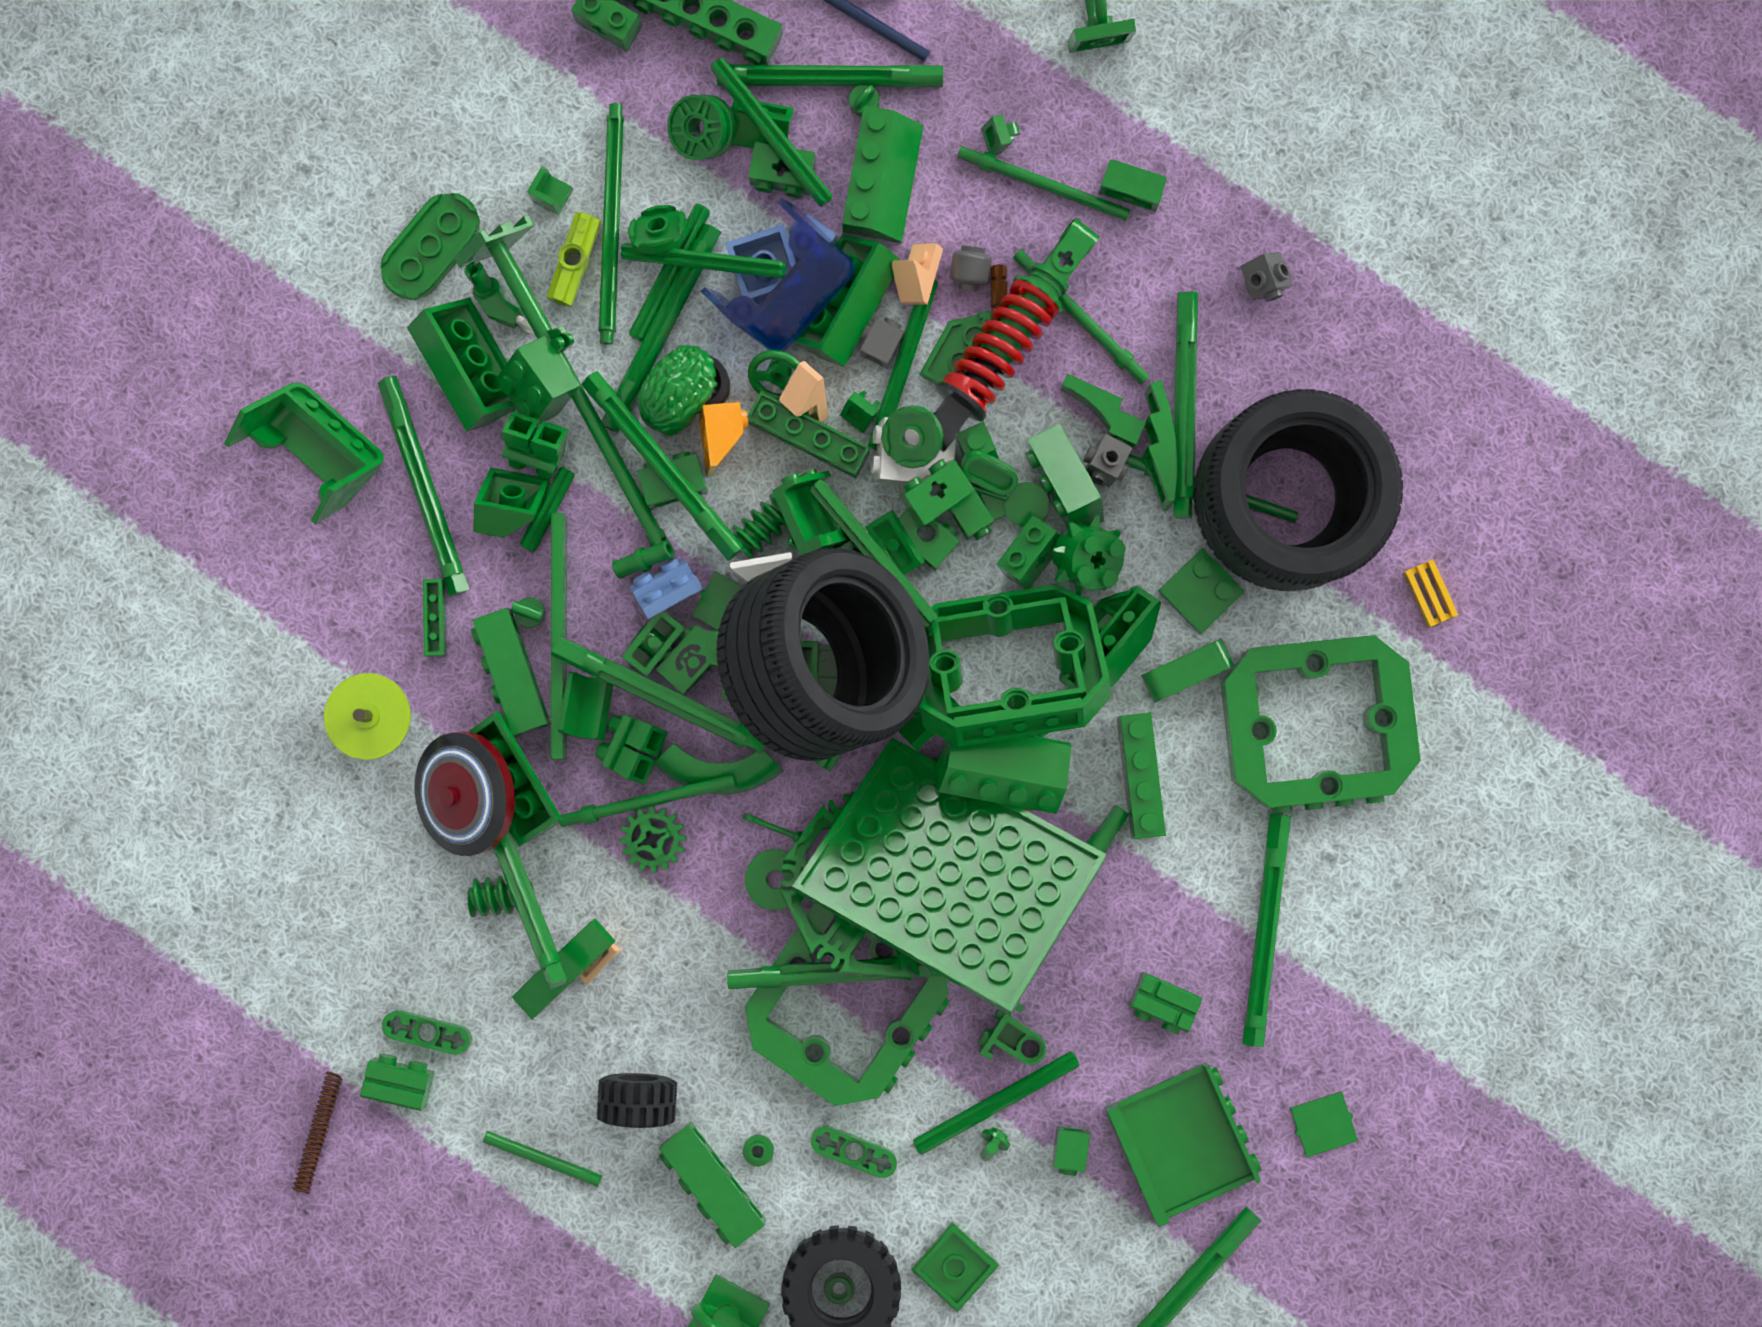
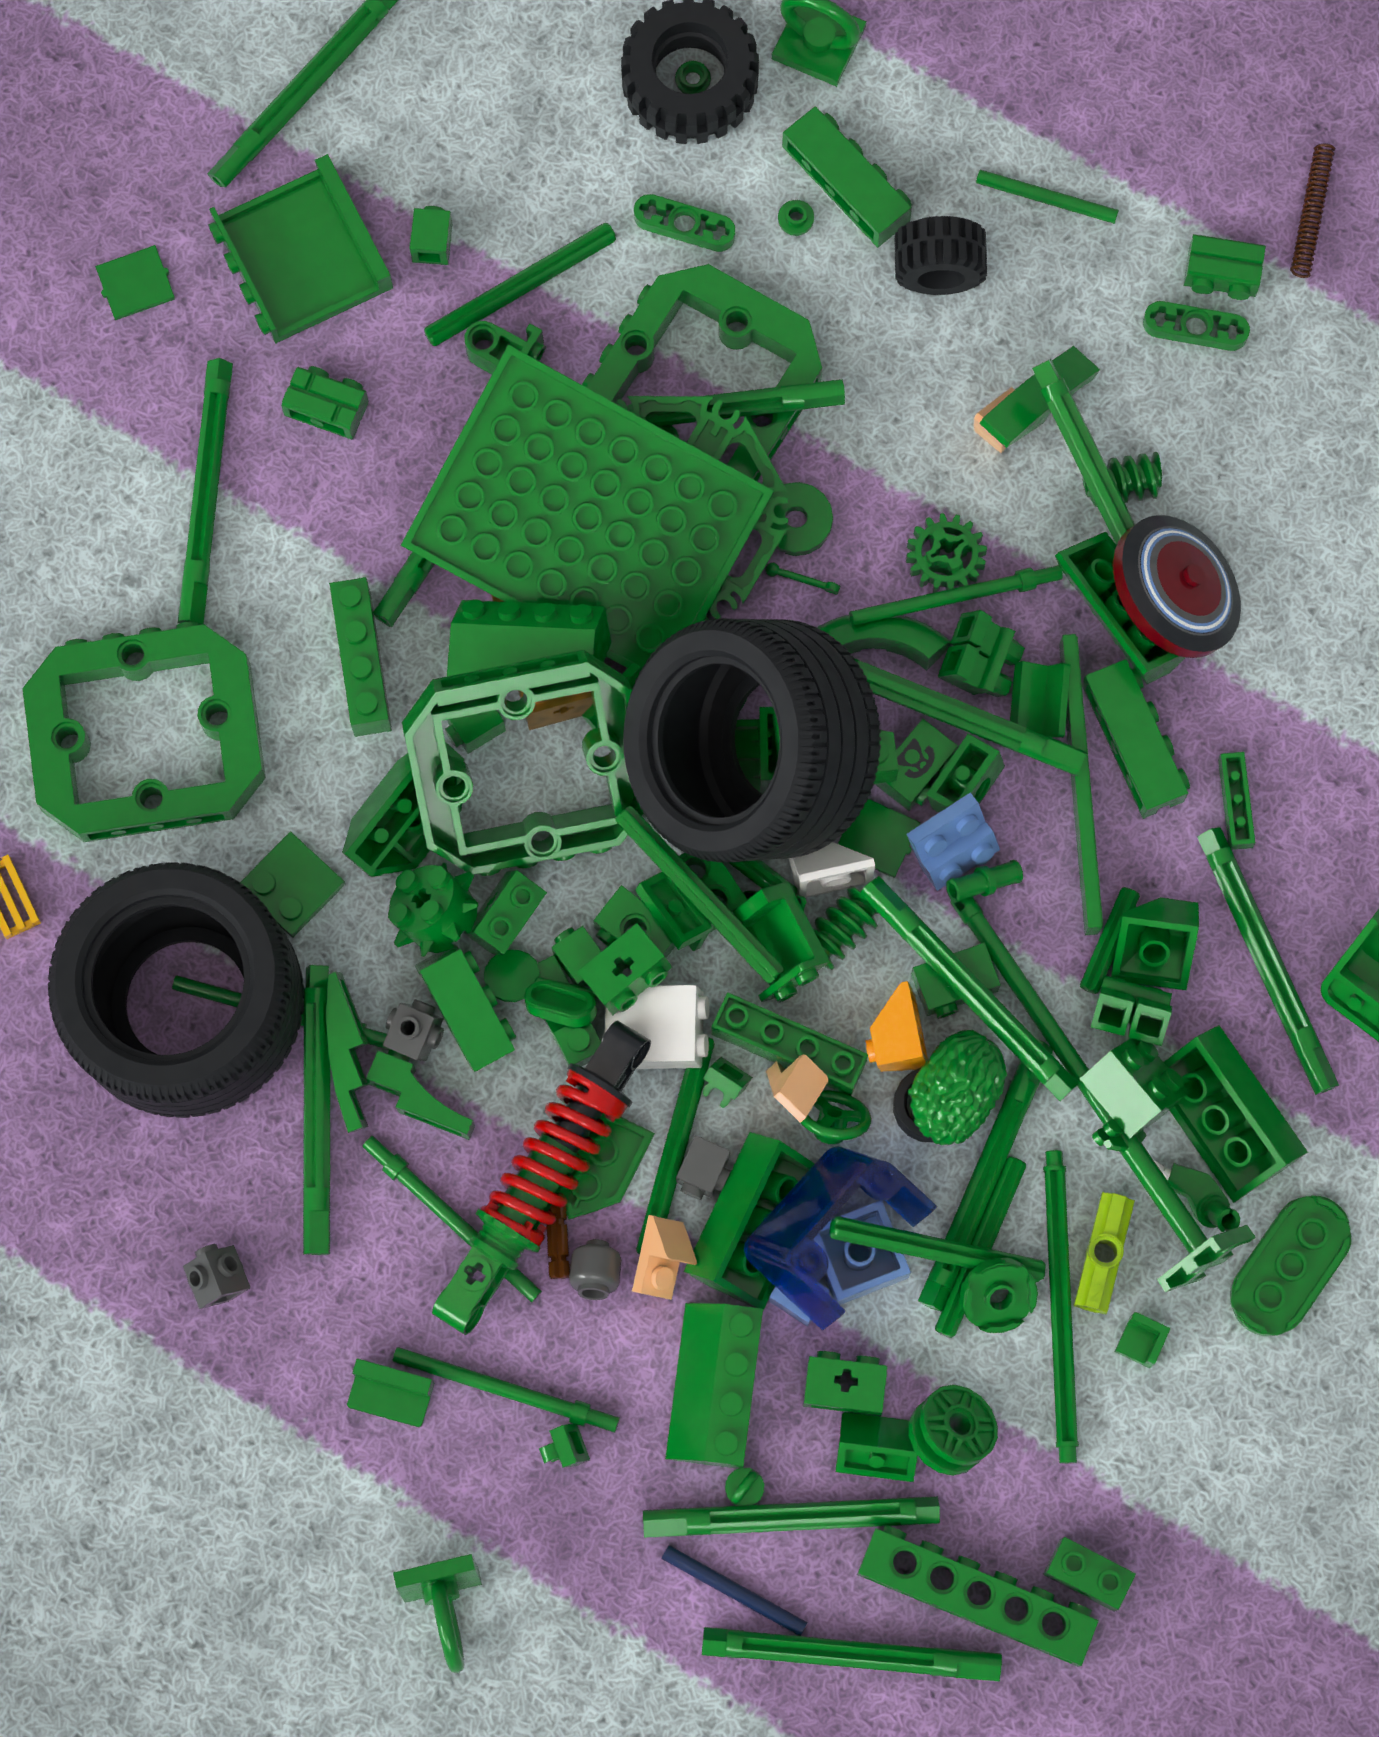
camera: 175 degrees right, 10 degrees down
(367, 716) = (1303, 670): lime piece -> none
(529, 612) = (1120, 814): green plate -> none
(771, 132) = (862, 1423): green axle -> none
(924, 424) = (654, 1049): green tile -> none
(955, 1266) = (560, 107): green tile -> none
(997, 1140) = (519, 242): green plate -> none
(1188, 670) = (306, 785): green beam -> none

